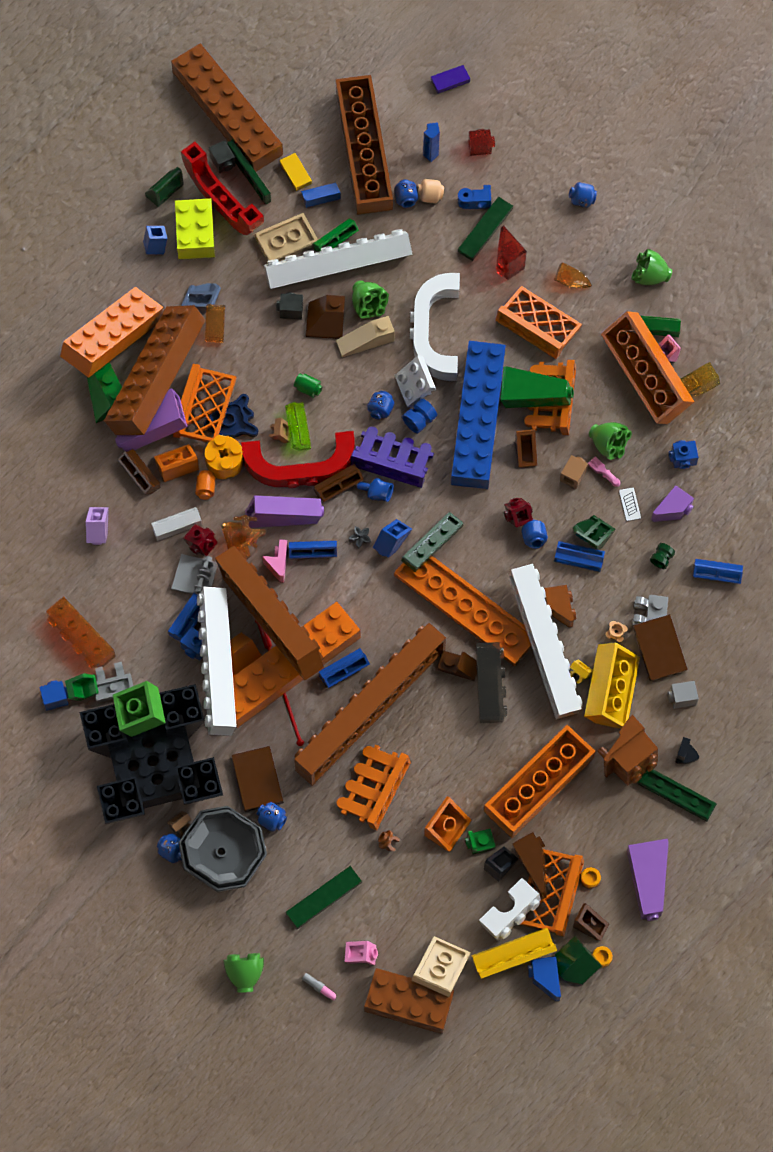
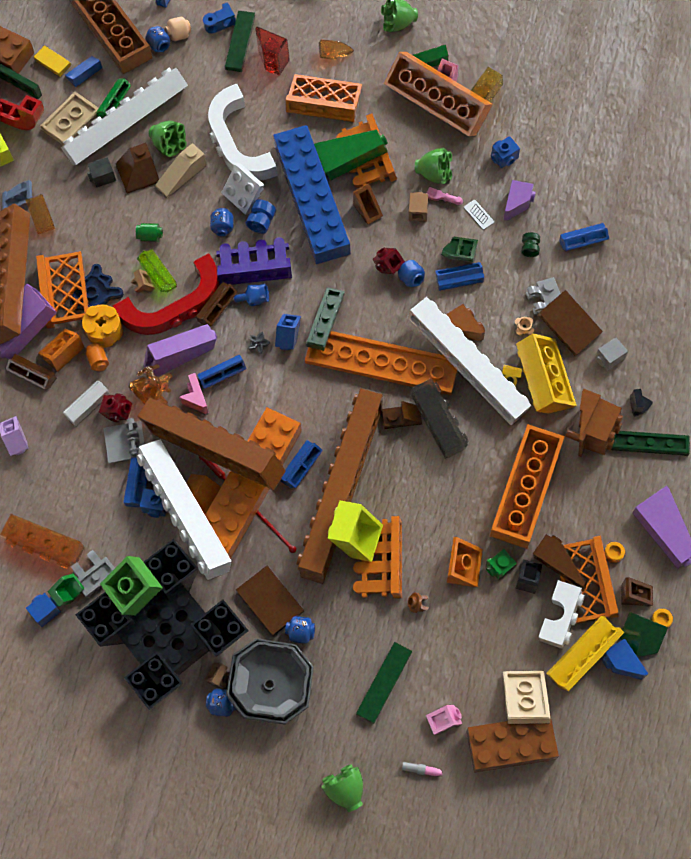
camera: 20 degrees left, 0 degrees up
(360, 750) = (355, 530): none -> neon yellow piece

